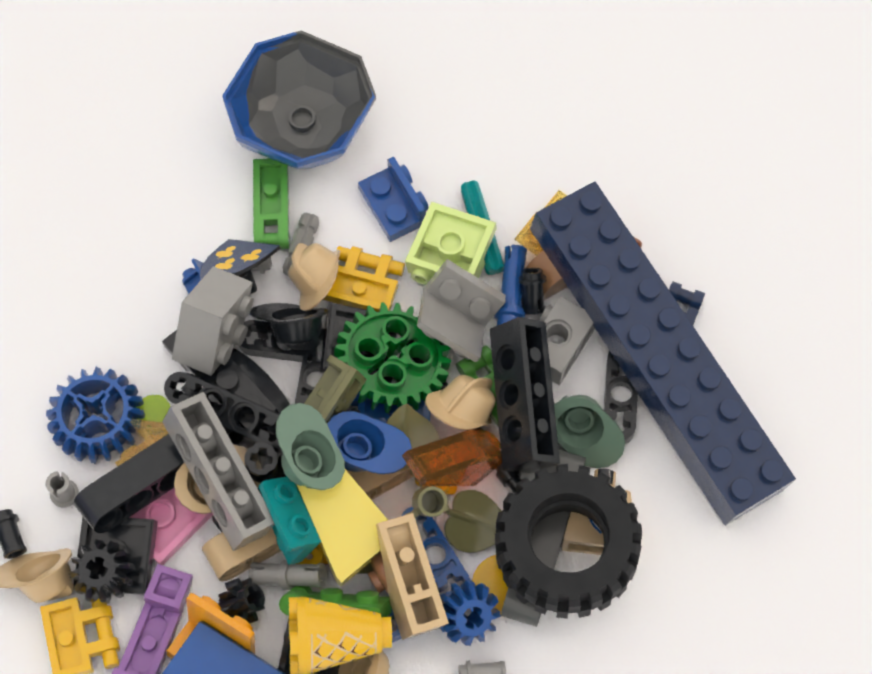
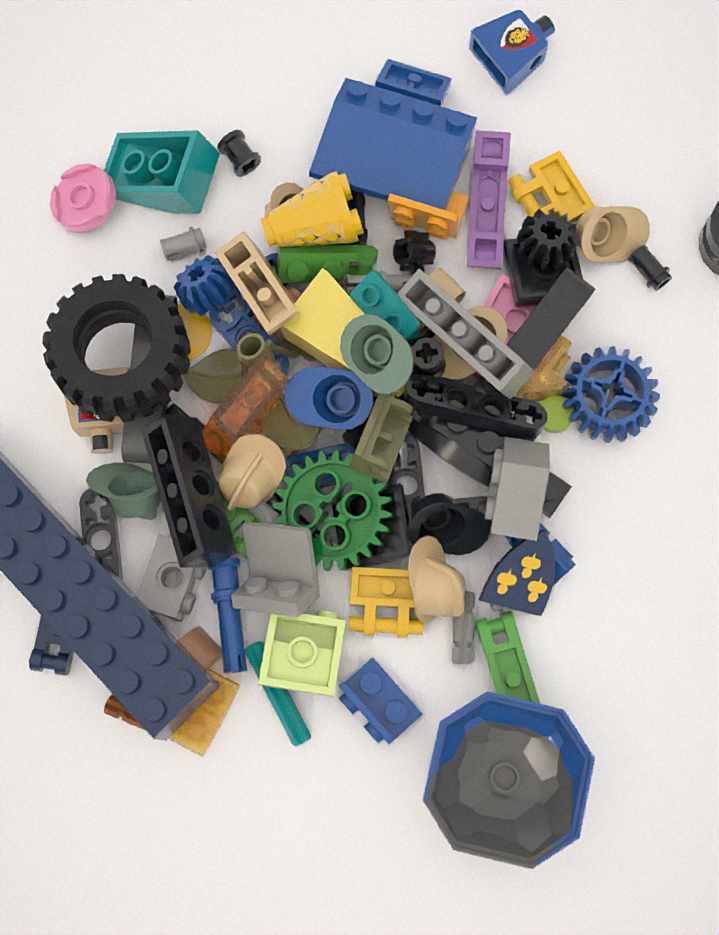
camera: 170 degrees right, 10 degrees up
(61, 489) = (615, 314): light grey pin -> none
(532, 286) = (208, 629): black pin -> none

